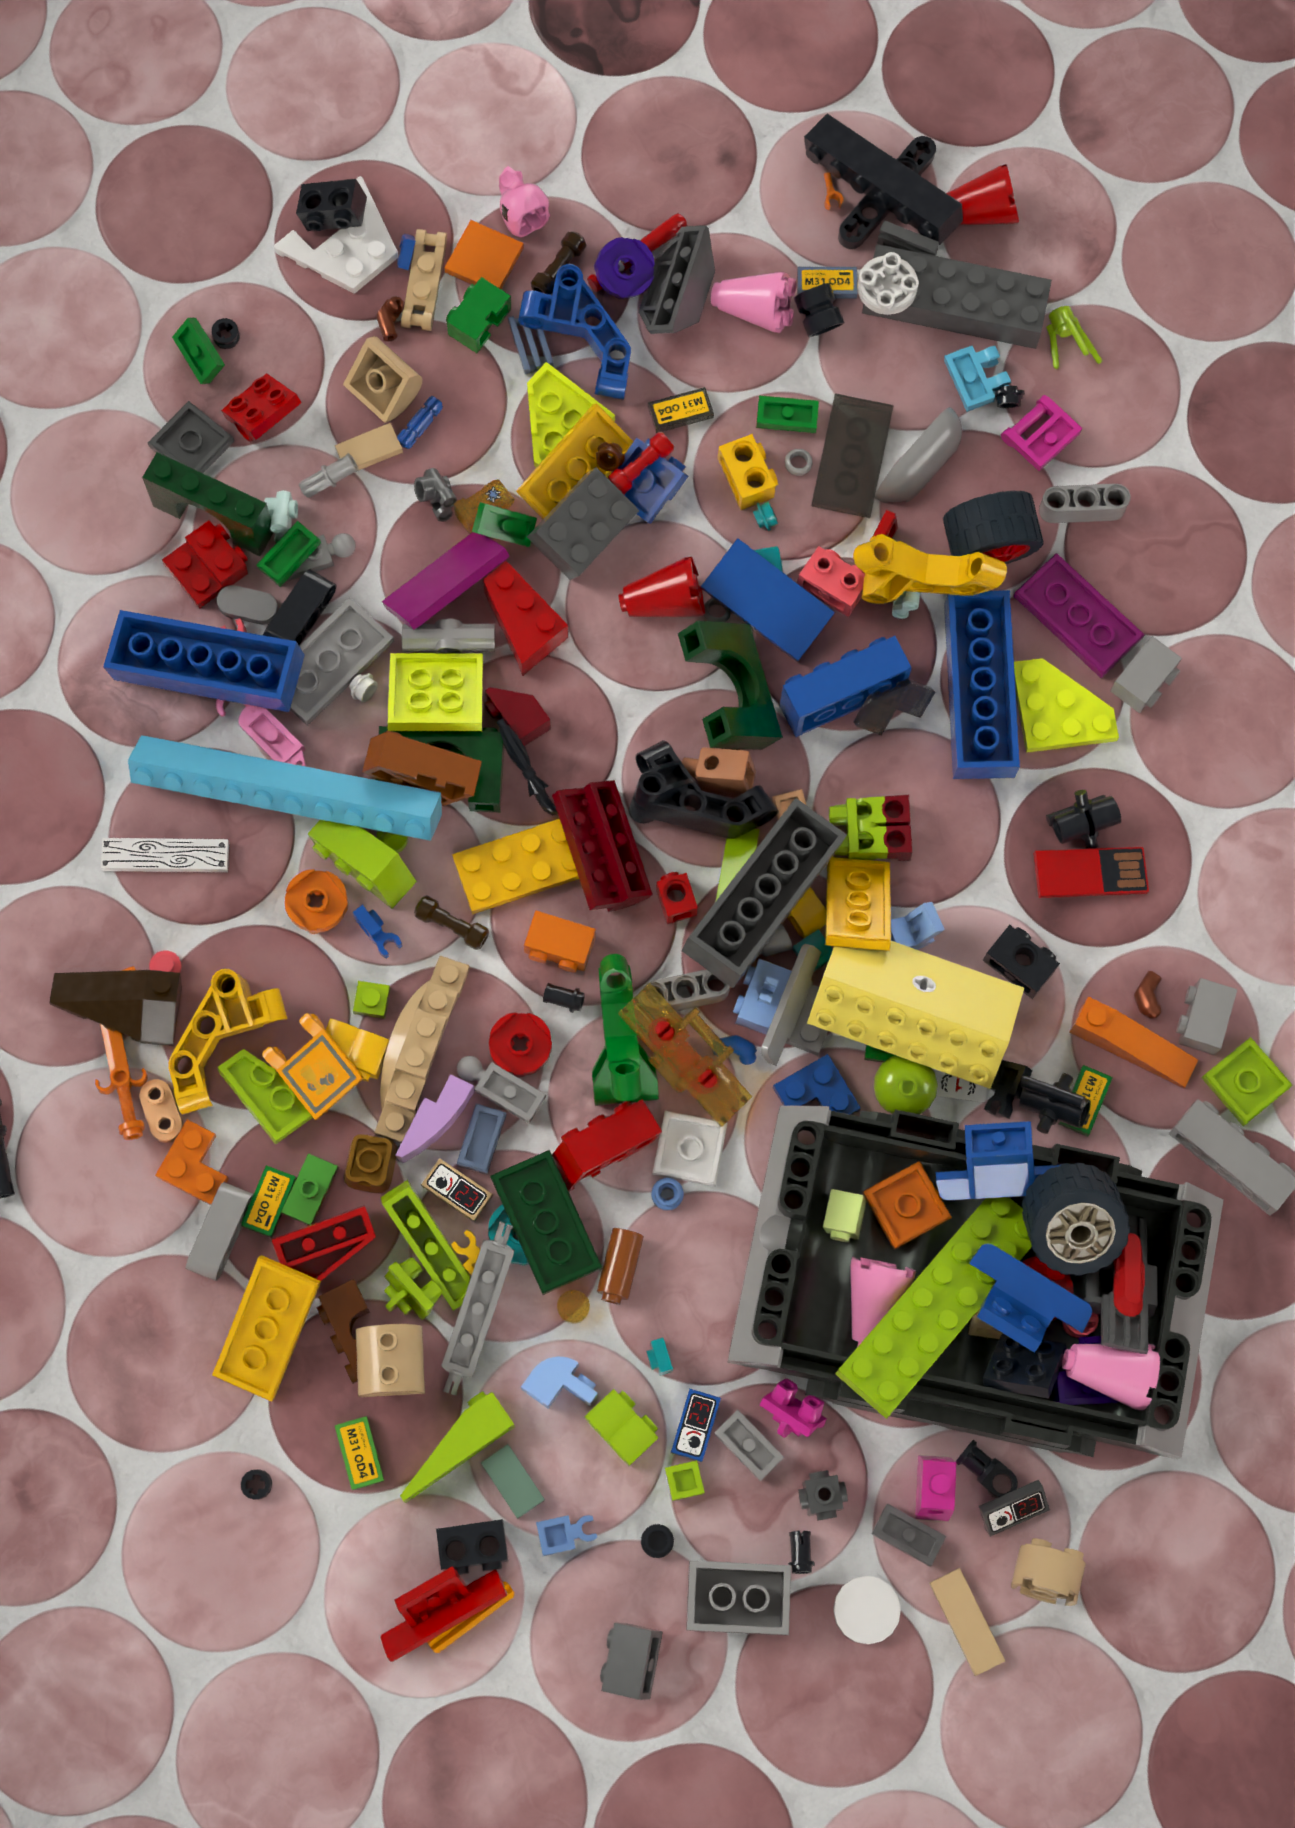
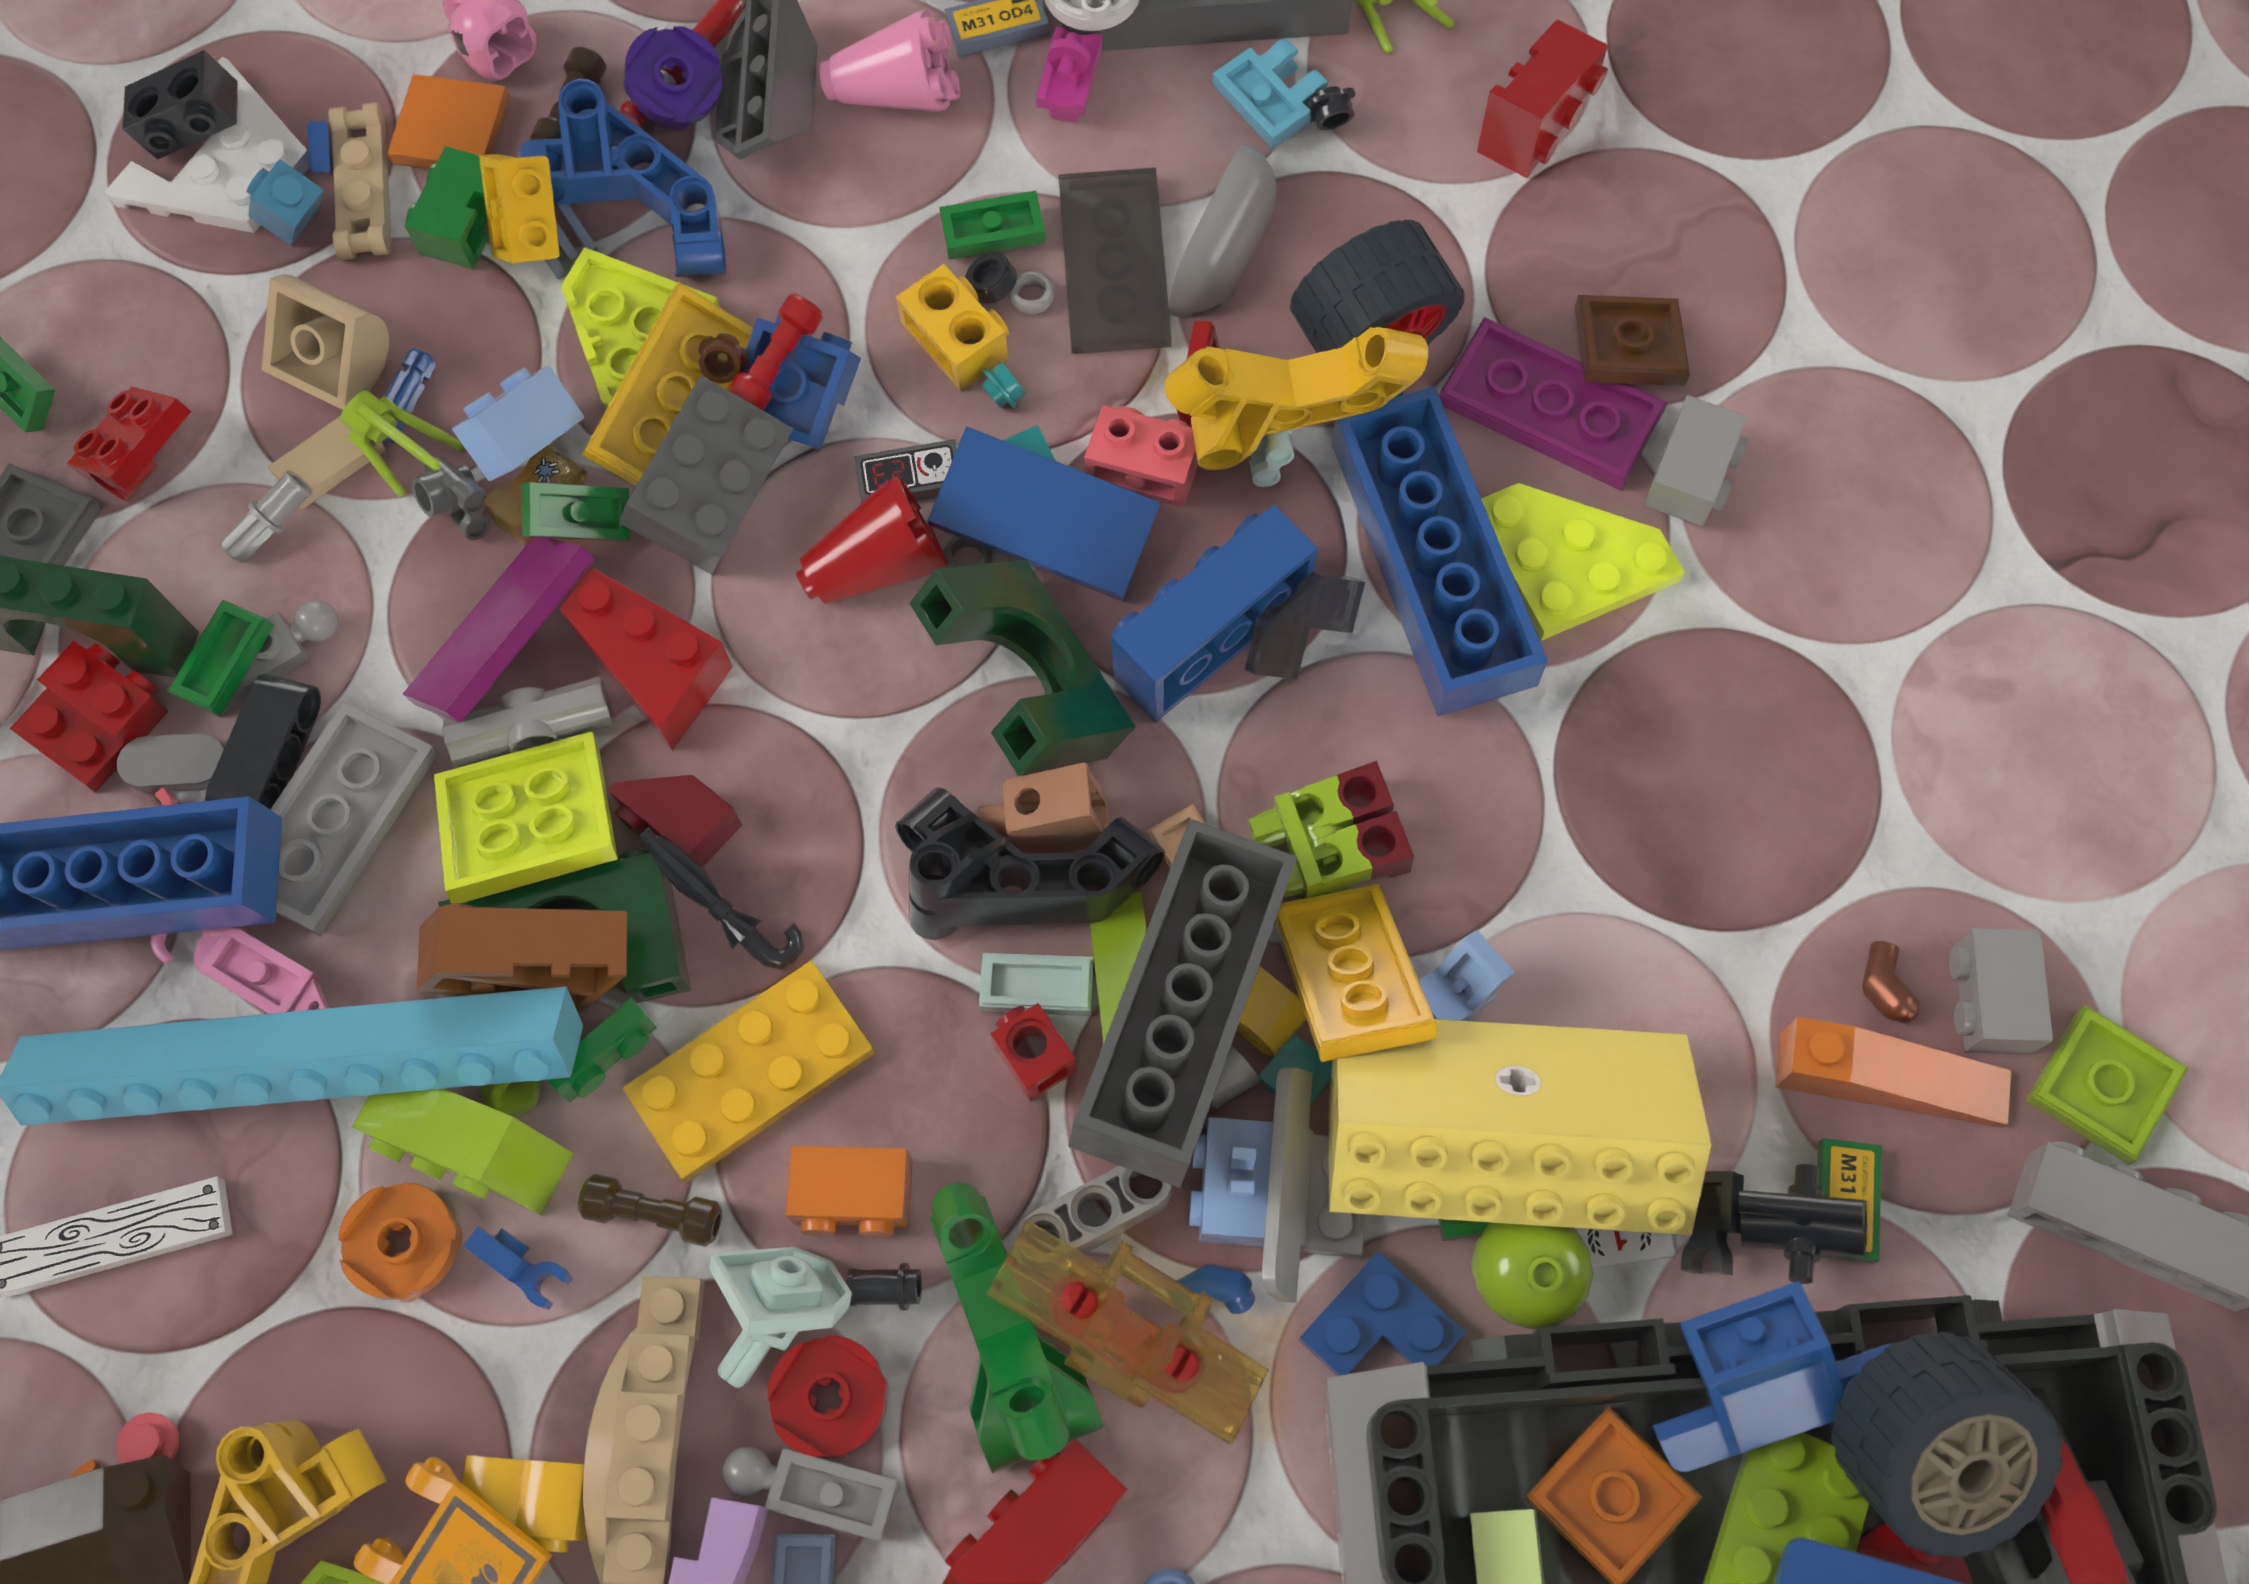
camera: 10 degrees left, 5 degrees down
(228, 324) = (45, 332): black bush -> none
(282, 511) = (196, 594): light aqua plate -> none
(363, 687) = (401, 844): white plate -> none
(371, 999) = (539, 1393): lime plate -> none
(379, 284) = (283, 201): none -> dark azure brick
(388, 315) = (313, 250): copper arm -> none
(403, 436) = (374, 421): none -> lime plant
(456, 827) = (615, 1038): none -> green plate
(485, 462) = (518, 422): none -> light blue brick
(507, 985) = (773, 1299): none -> light aqua piece
(515, 329) = (519, 208): none -> yellow bracket
(602, 846) = (880, 999): dark red brick -> none
(680, 410) = (822, 263): tile -> none
(689, 1148) = (1185, 1501): white tile -> none
(698, 864) = (1056, 982): none -> light aqua tile
(705, 551) = (919, 466): none -> tile
(777, 446) = (992, 277): none -> black tile
(819, 310) = (990, 50): black wheel -> none
(859, 331) = (1069, 74): none -> dark pink hips
(1002, 959) = (1625, 994): black brick -> none
(1048, 439) = (1412, 154): dark pink plate -> none
(1085, 819) = (1679, 718): black pin -> none
(1091, 872) = (1717, 804): red piece -> none
(1095, 494) = (1517, 213): light grey beam -> none
(1135, 427) = (1542, 98): none -> red wedge
(1136, 591) = (1631, 340): none -> reddish brown plate

